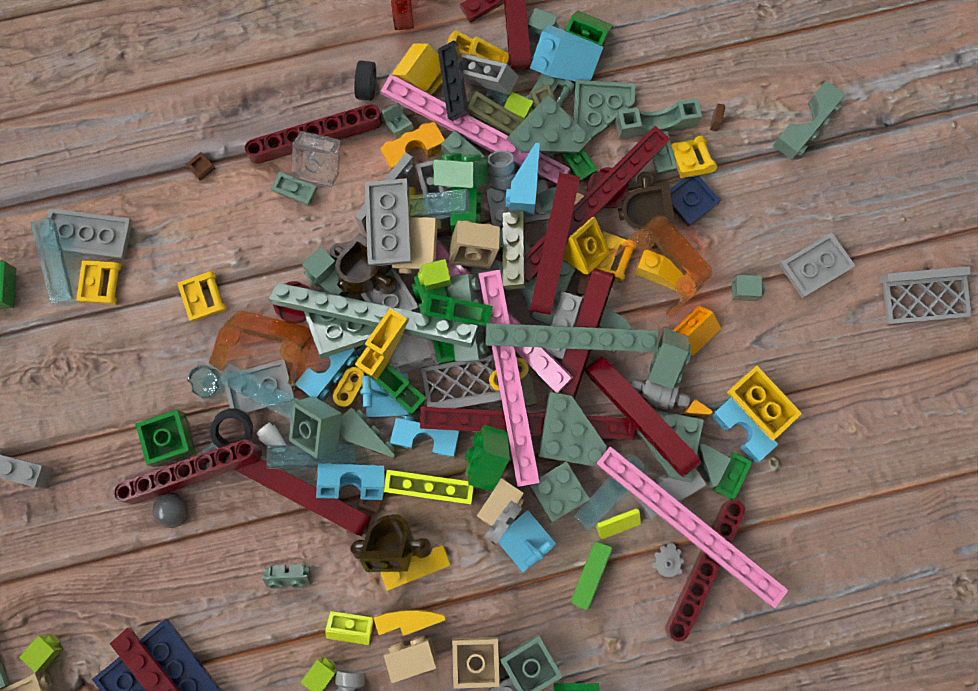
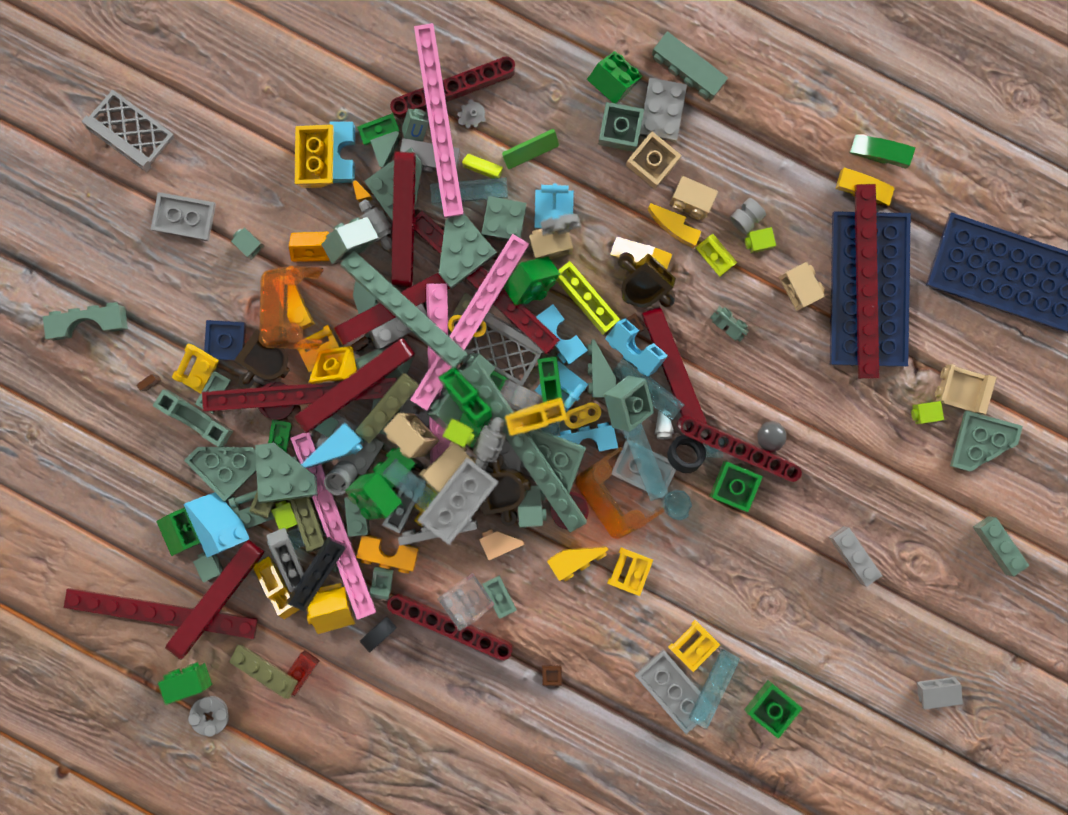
camera: 135 degrees left, 10 degrees up
(245, 666) = (802, 286): none -> tan brick
(259, 263) = (570, 560): none -> yellow slope
(329, 228) = (498, 543): none -> light nougat slope
(402, 290) = (489, 443): none -> light grey piece
(706, 505) = (415, 125): none -> sand green brick

